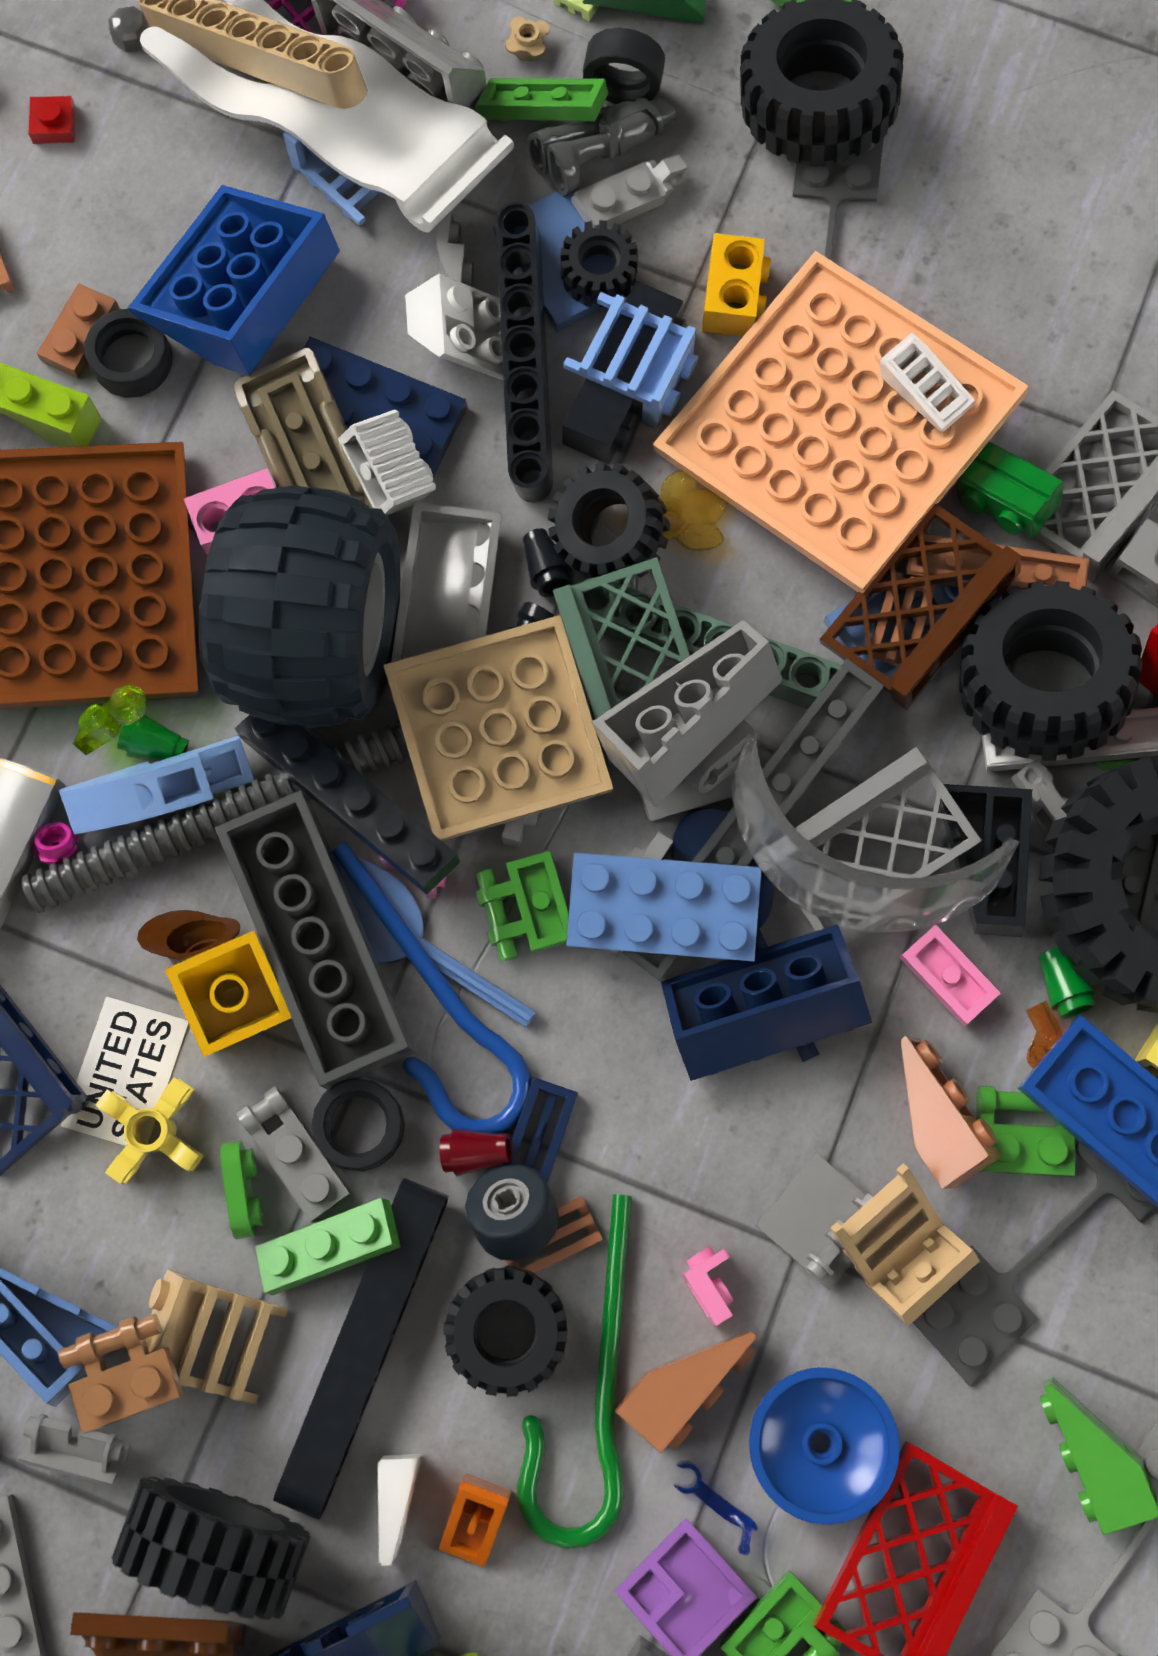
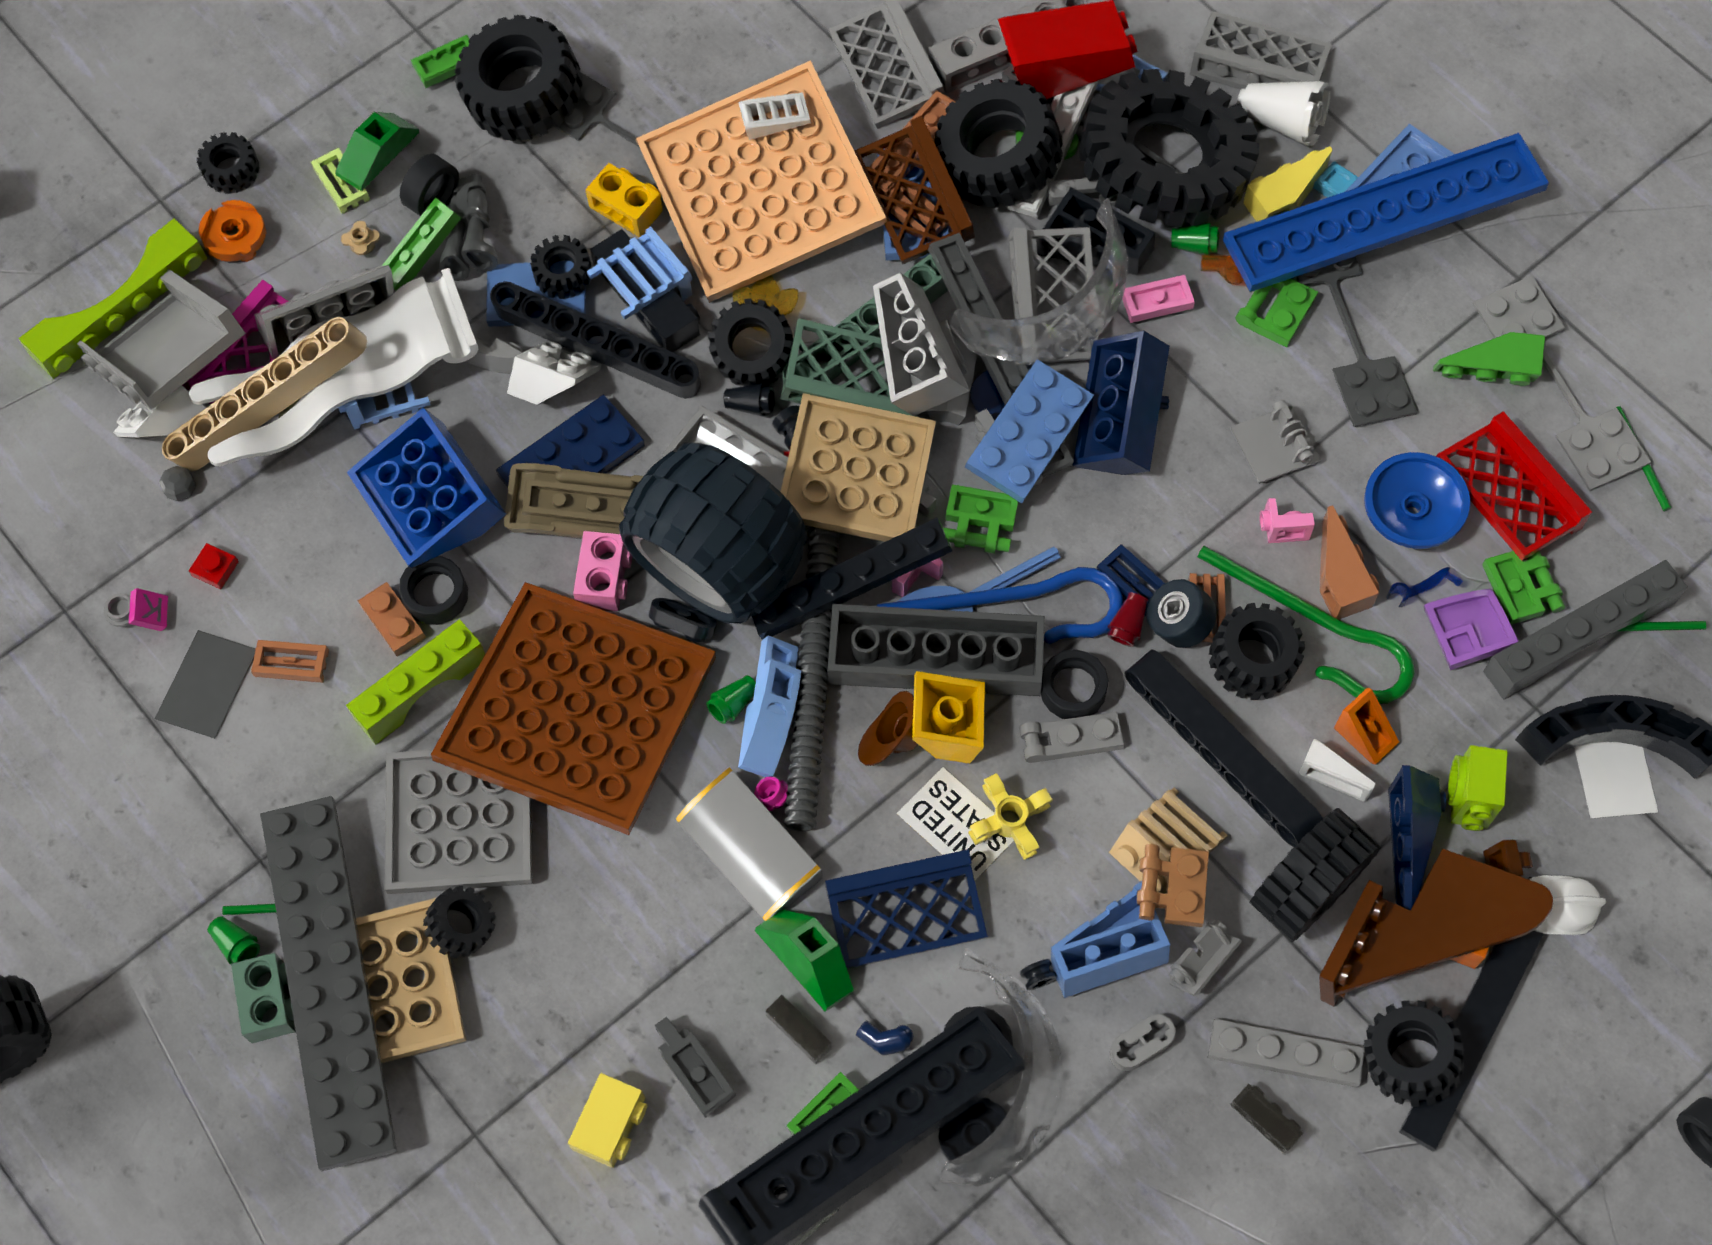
camera: 60 degrees left, 10 degrees down
(103, 722) = (704, 718): clear neon green plate -> none
(243, 1209) = (1068, 774): bright green plate -> none
(327, 1246) = (1147, 735): plate -> none
(387, 462) = (625, 452): white brick -> none
(629, 192) = (517, 230): light grey hinge -> none
(904, 1248) = (1321, 401): tan plate -> none
(942, 1126) = (1255, 343): slope -> none
(1009, 491) = (867, 111): green brick -> none

